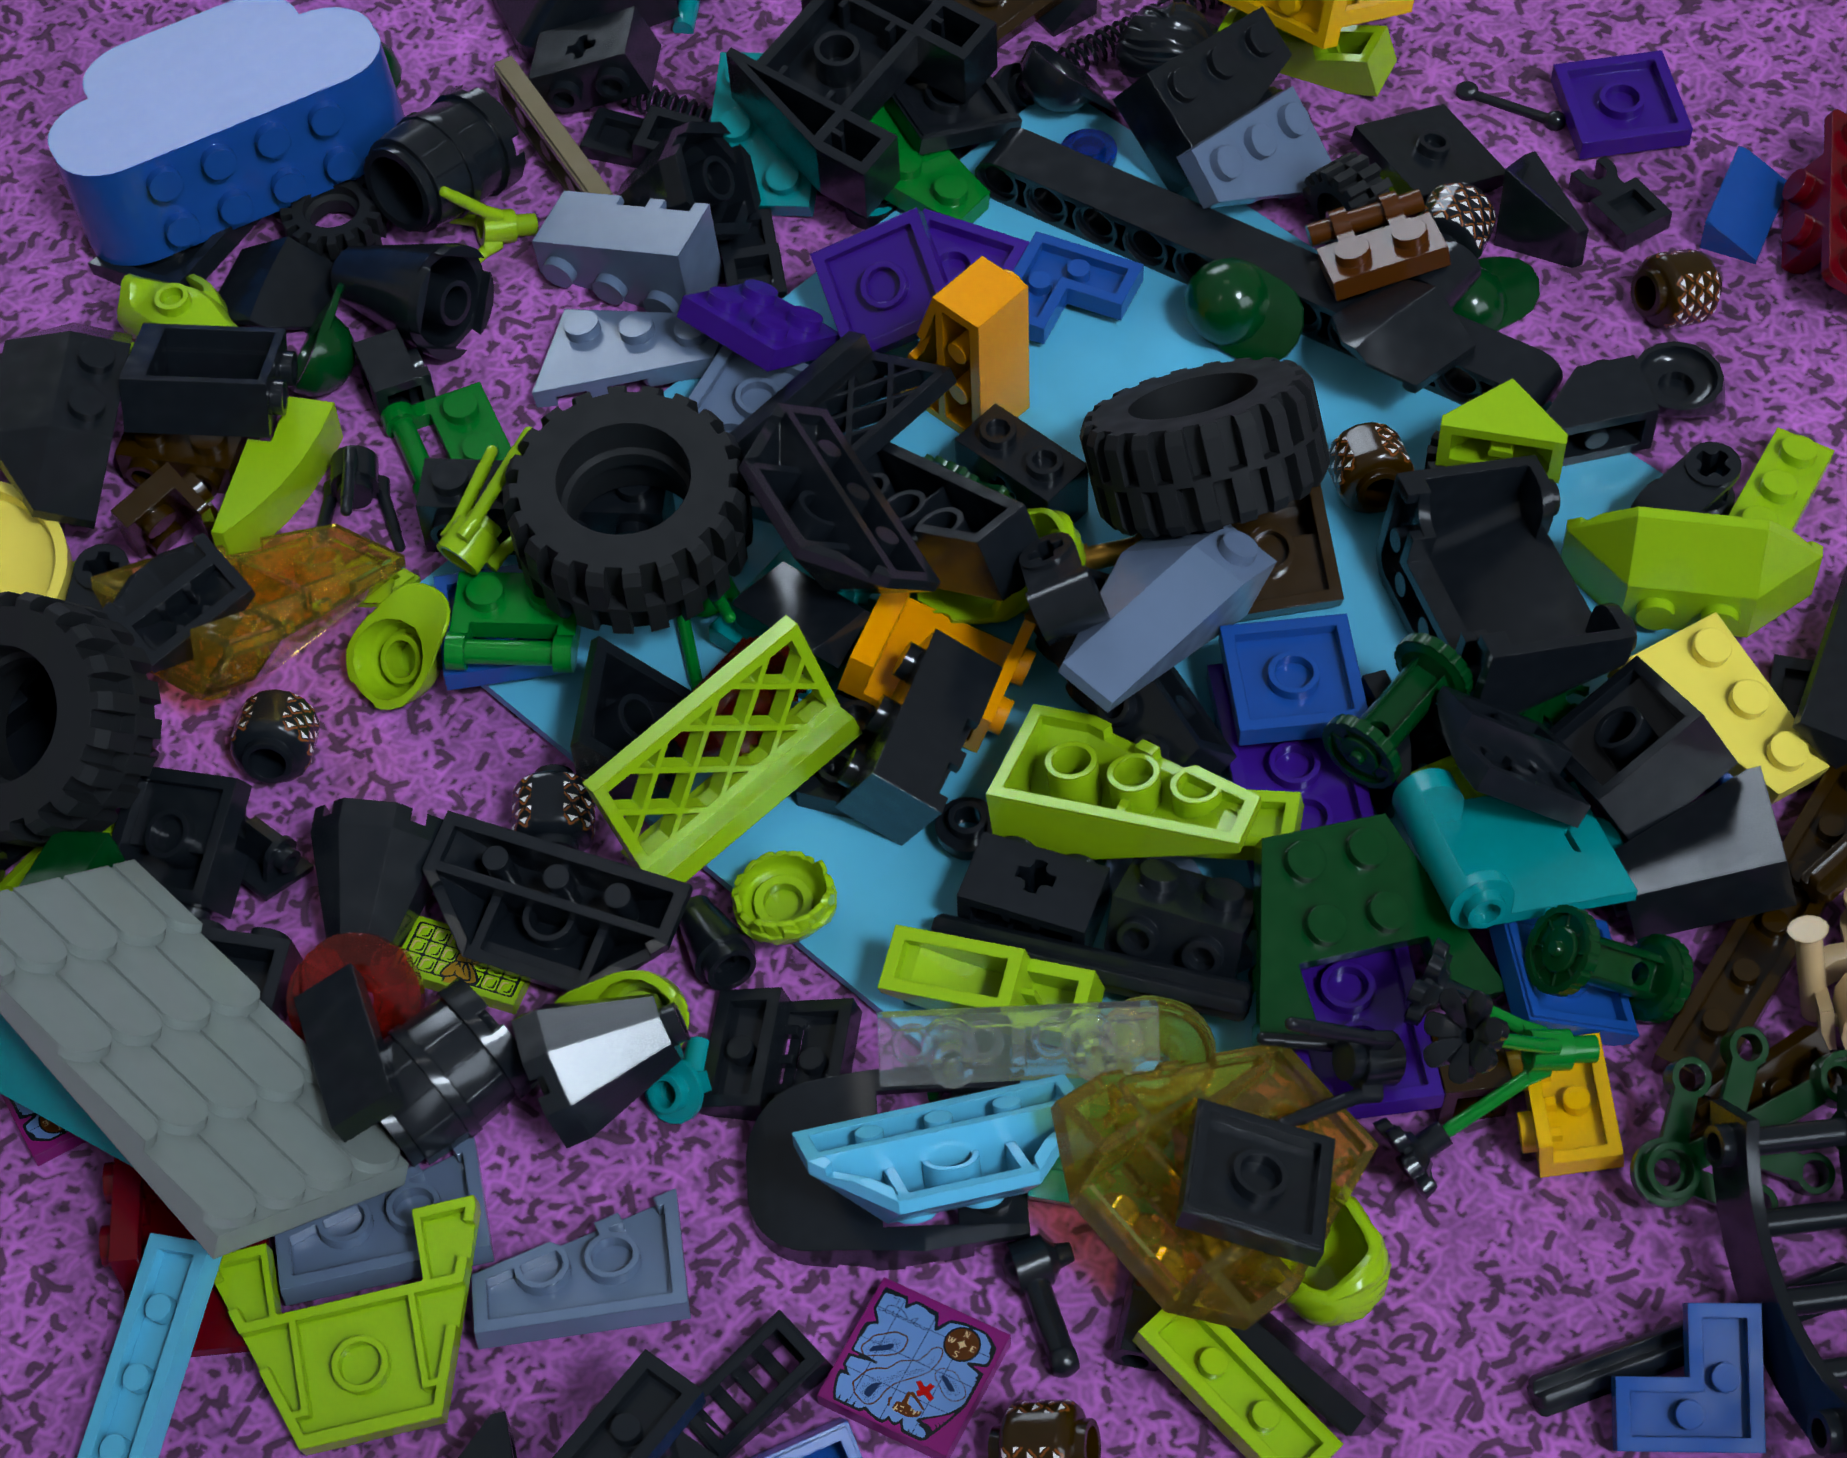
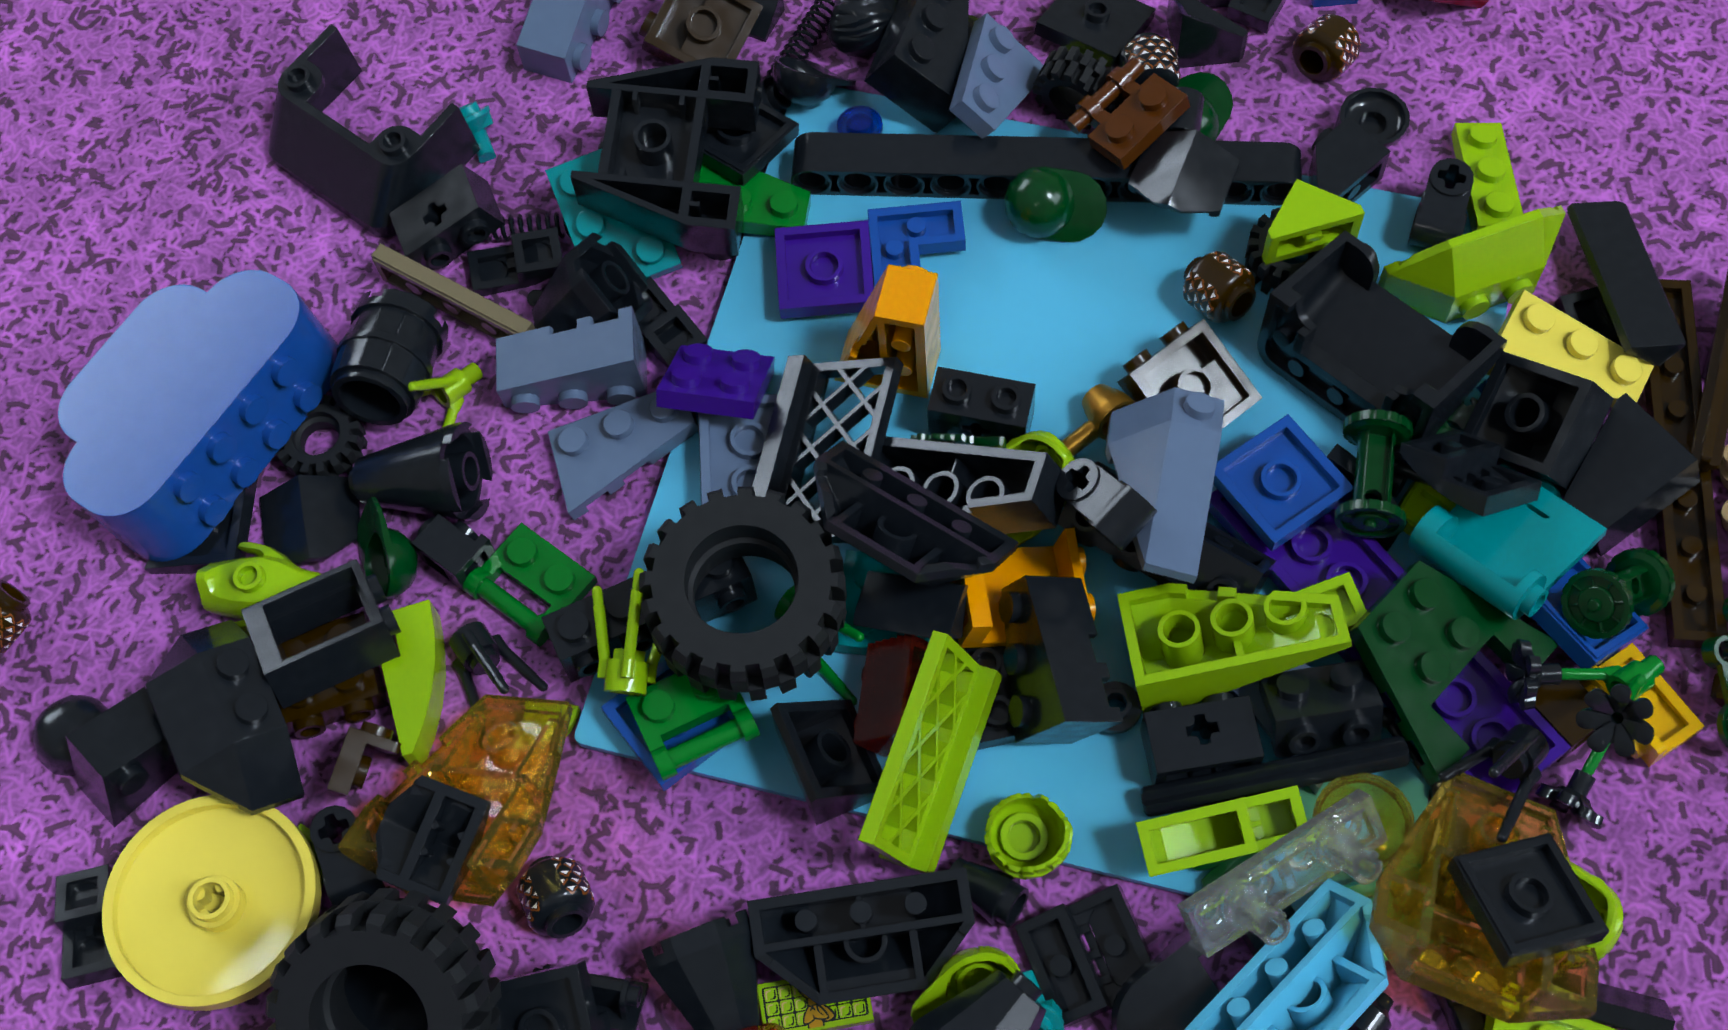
camera: 25 degrees left, 10 degrees up
(398, 640) = (610, 759): lime piece -> none
(554, 807) = (809, 852): black head -> none
(882, 280) = (793, 305): dark purple plate -> none
(1205, 447) = (1120, 334): black tyre -> none

